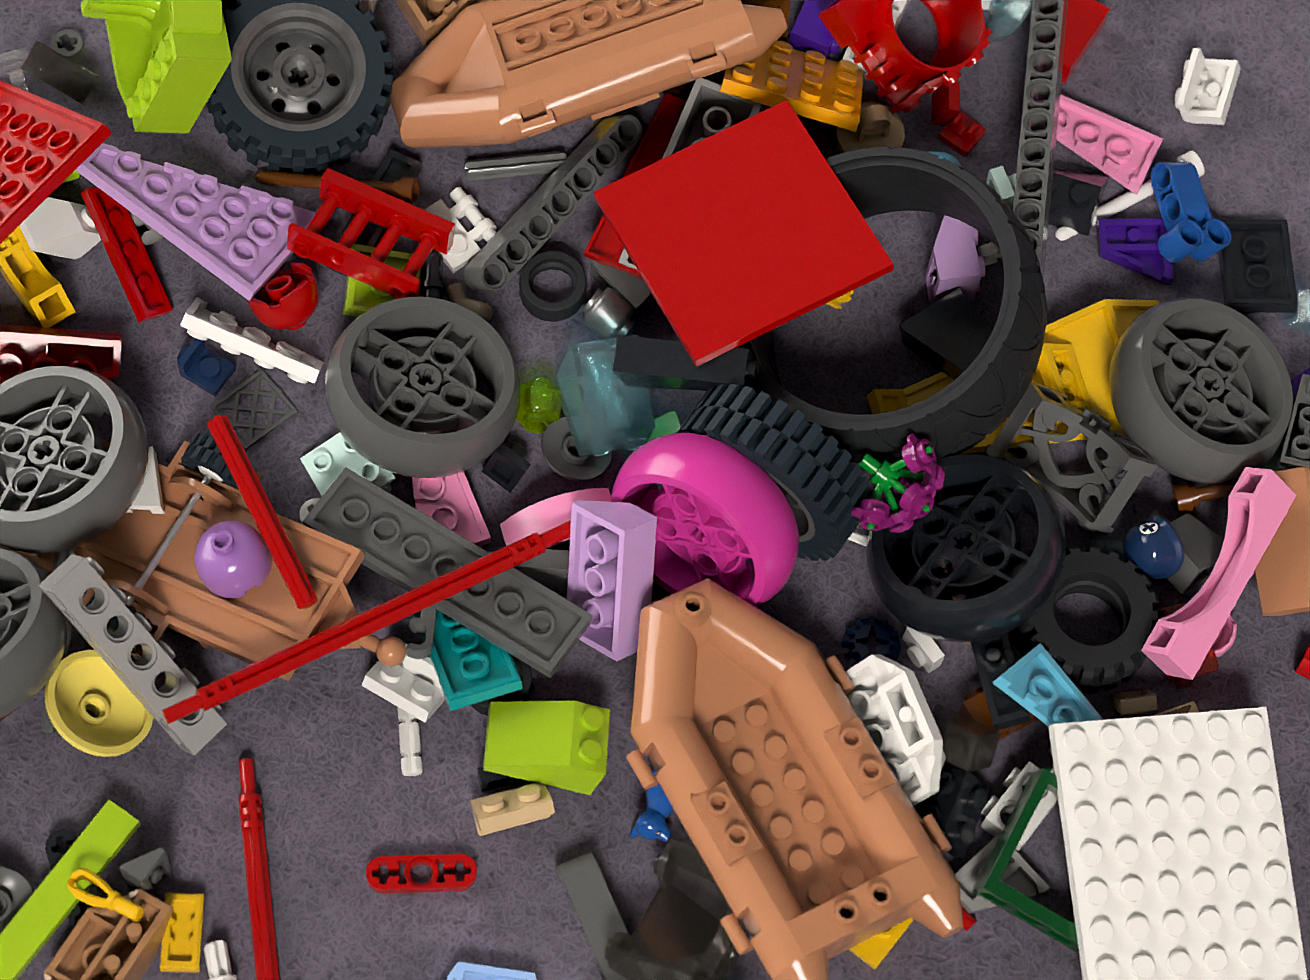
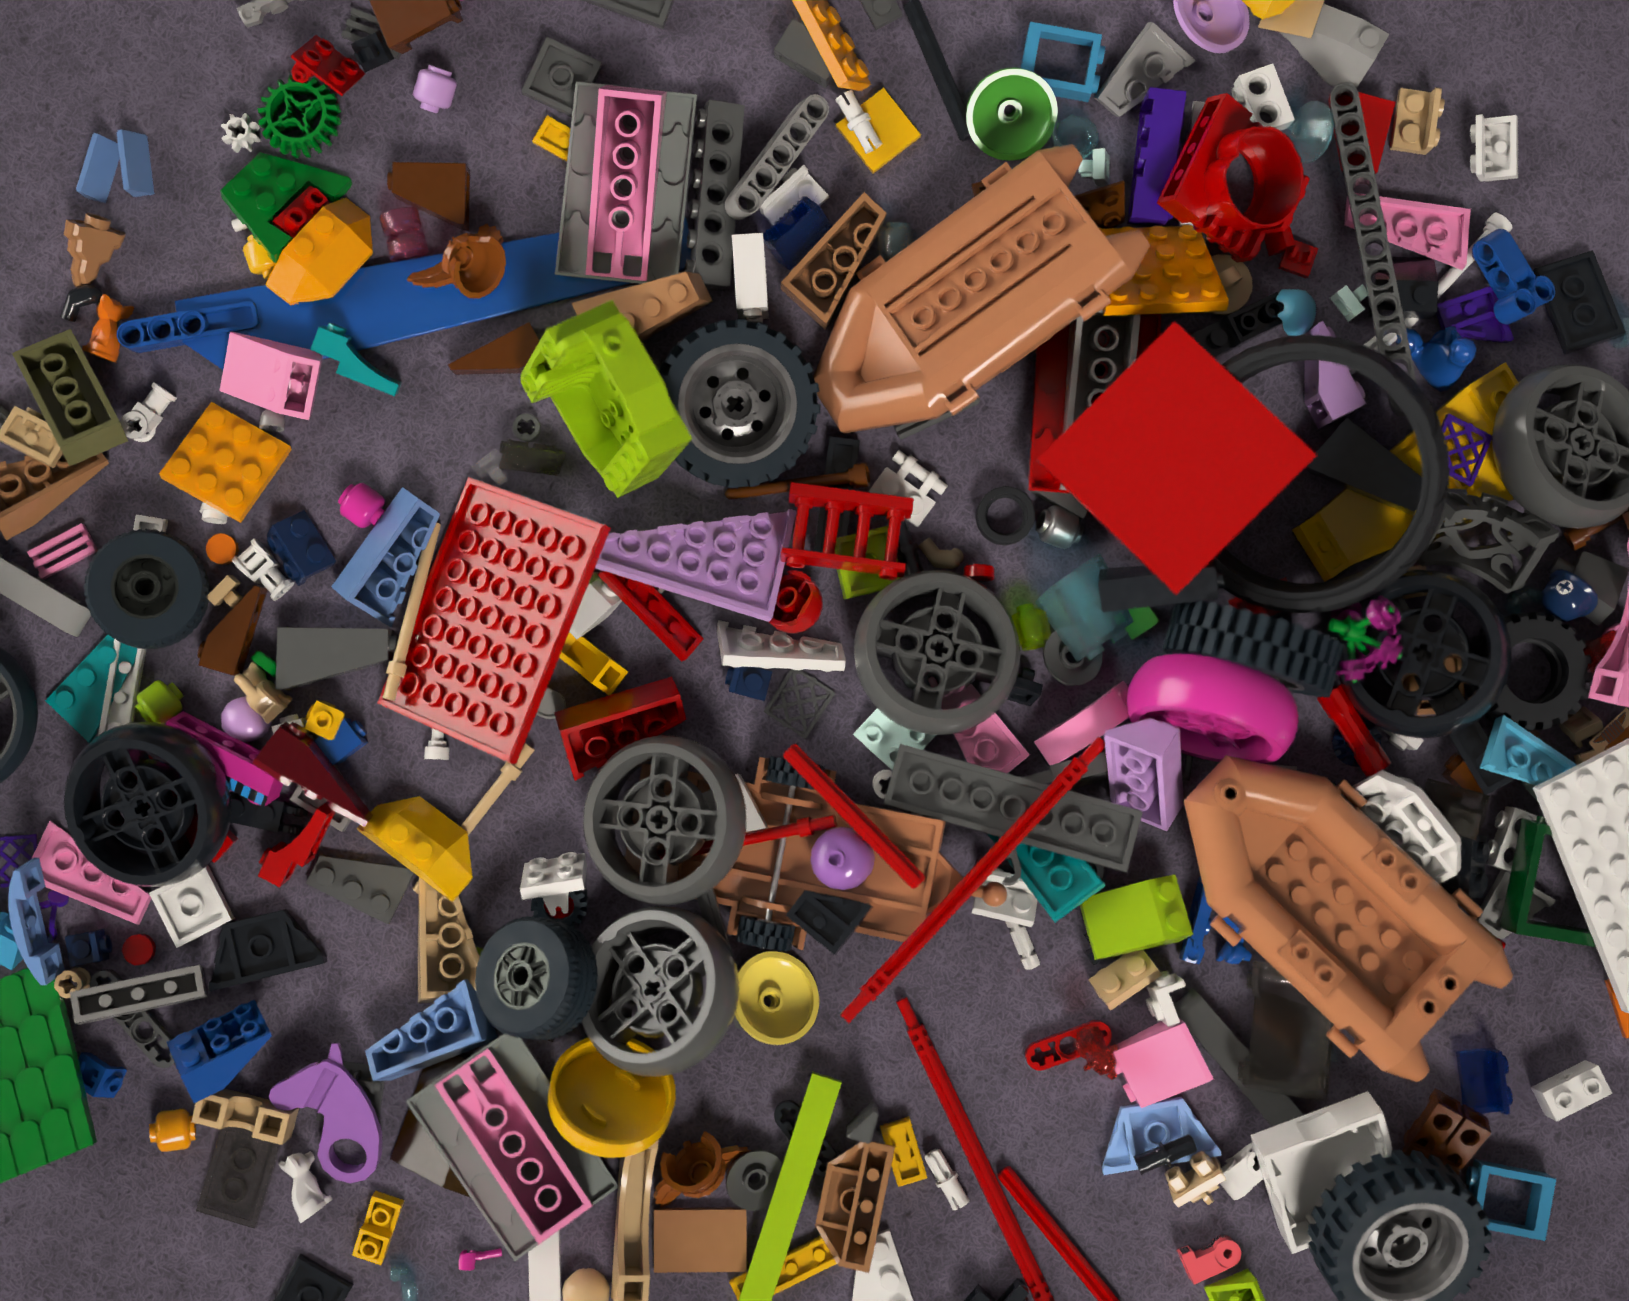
camera: 10 degrees left, 20 degrees up
(66, 589) = (788, 962): light grey brick -> none
(113, 902) = (850, 1157): yellow piece -> none
(192, 617) = (828, 918): none -> black wing
(202, 516) = (803, 827): none -> red bar
(448, 876) = (1092, 1047): none -> clear red animal
(508, 331) = (980, 572): none -> red tile
(520, 918) = (1160, 1063): none -> bright pink slope
(540, 208) = (979, 451): dark grey beam -> none
(552, 829) = (1160, 1002): none -> white bracket
(621, 784) = (1199, 919): none -> blue hinge
(865, 611) = (1364, 747): none -> red axle
(1083, 274) = (1442, 358): none -> blue head
(1091, 340) = (1468, 428): none -> dark purple window
(1129, 39) = (1416, 120): none -> tan bracket

